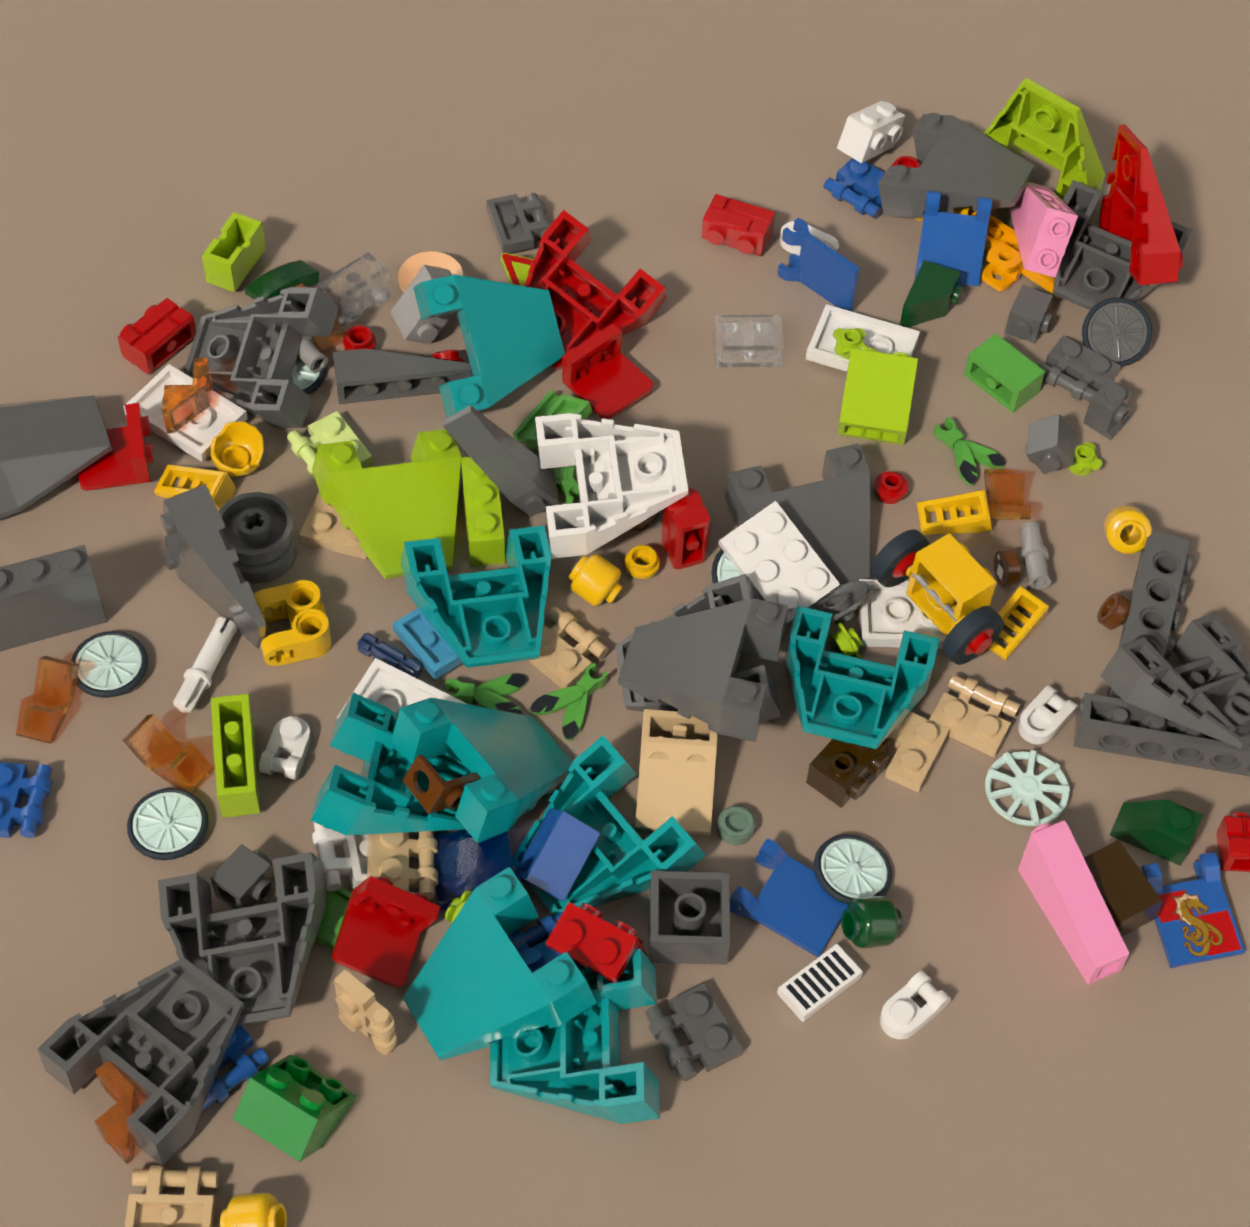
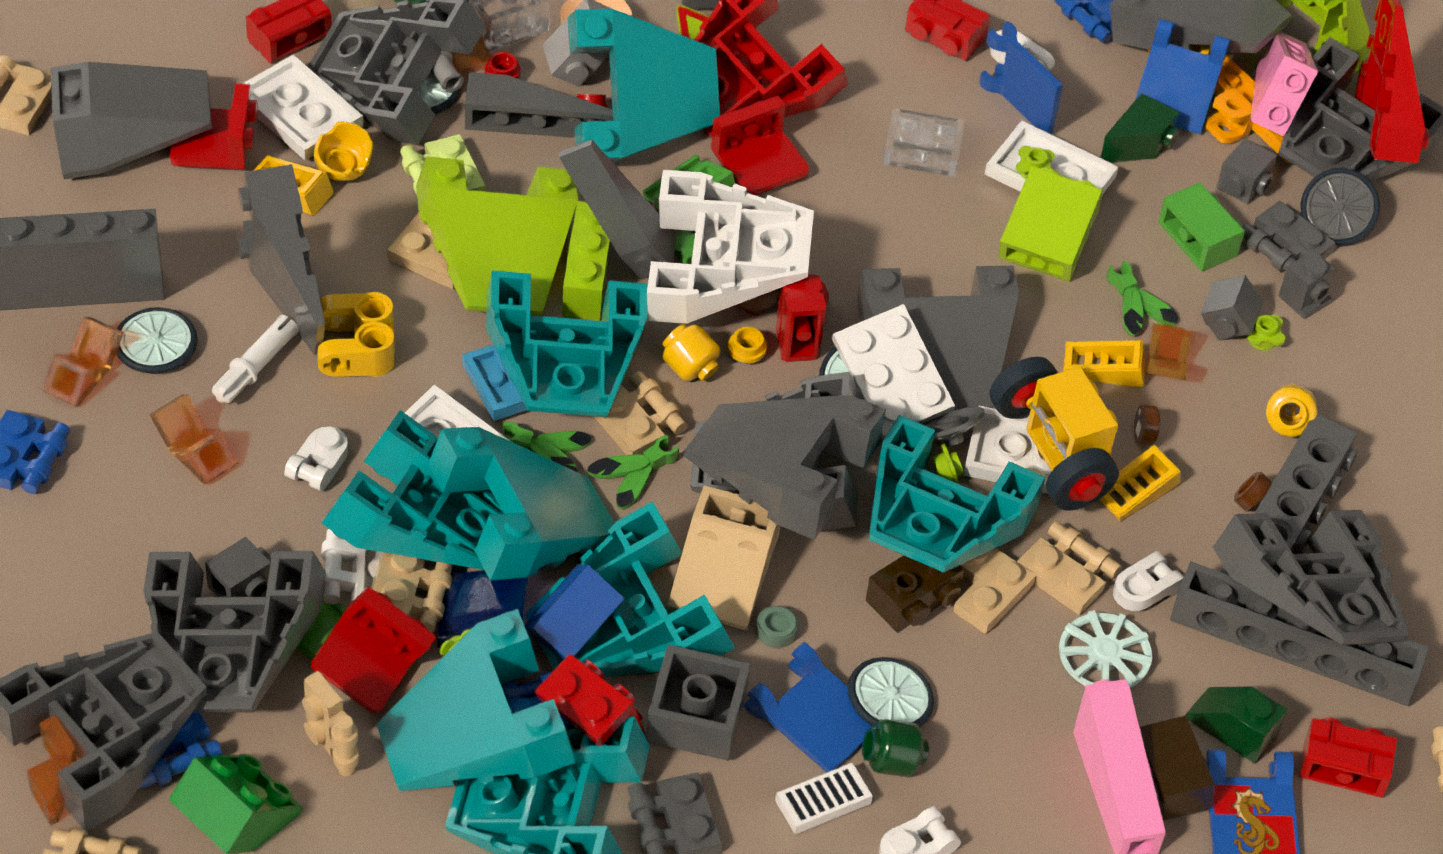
camera: 10 degrees right, 5 degrees down
(167, 824) = (176, 507): light aqua wheel -> none
(186, 402) = (302, 93): clear orange slope -> none
(235, 755) = (261, 451): lime brick -> none
(261, 534) = (343, 241): dark grey wheel -> none
(369, 646) = (433, 374): dark blue axle -> none
(440, 793) = (464, 524): reddish brown bracket -> none
(893, 493) = (1041, 321): red plate -> none
(1034, 556) = (1181, 419): light grey pin -> none

